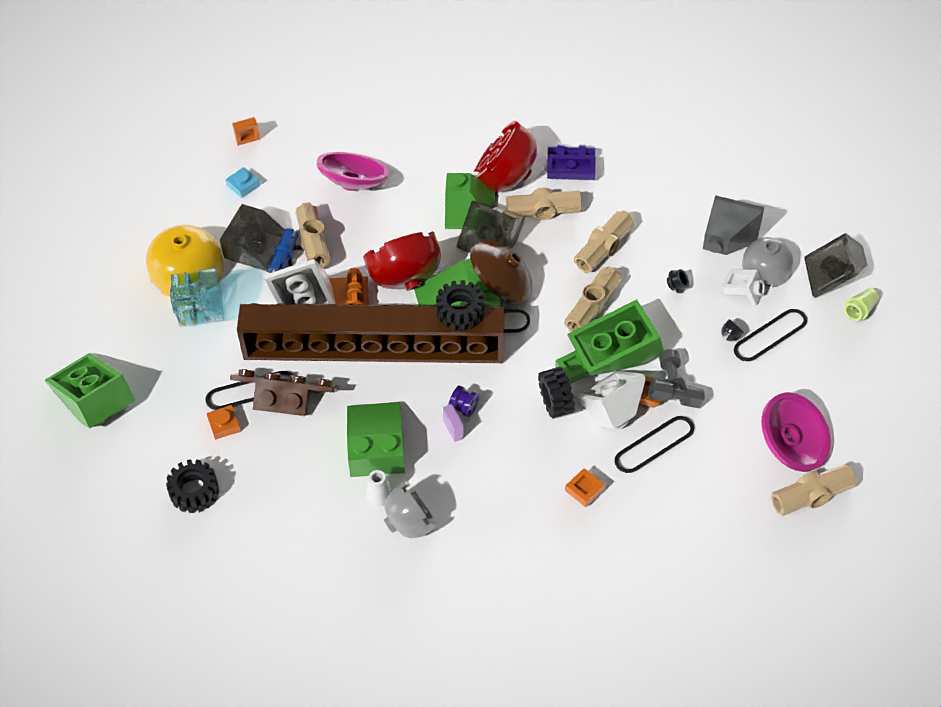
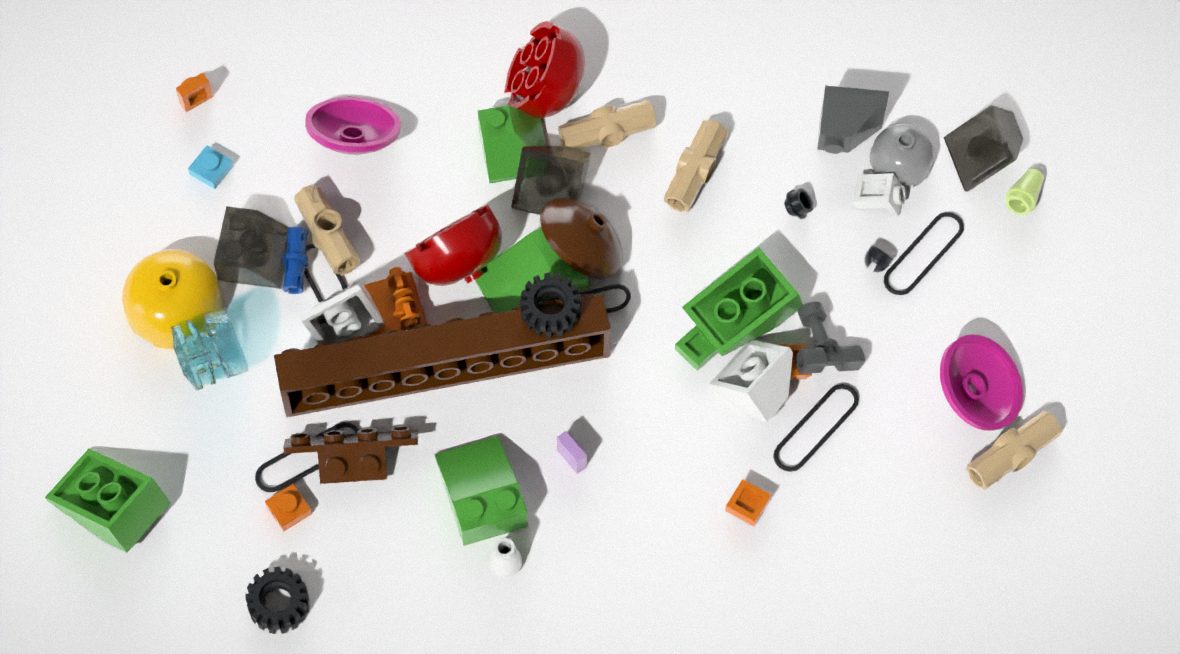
camera: 15 degrees left, 10 degrees up
(407, 513) = (548, 581): light grey cylinder -> none
(464, 401) = (577, 420): dark purple wheel -> none
(556, 392) = (688, 388): black tyre -> none
(571, 162) = (631, 64): dark purple plate -> none
(593, 298) = (705, 236): tan piece -> none

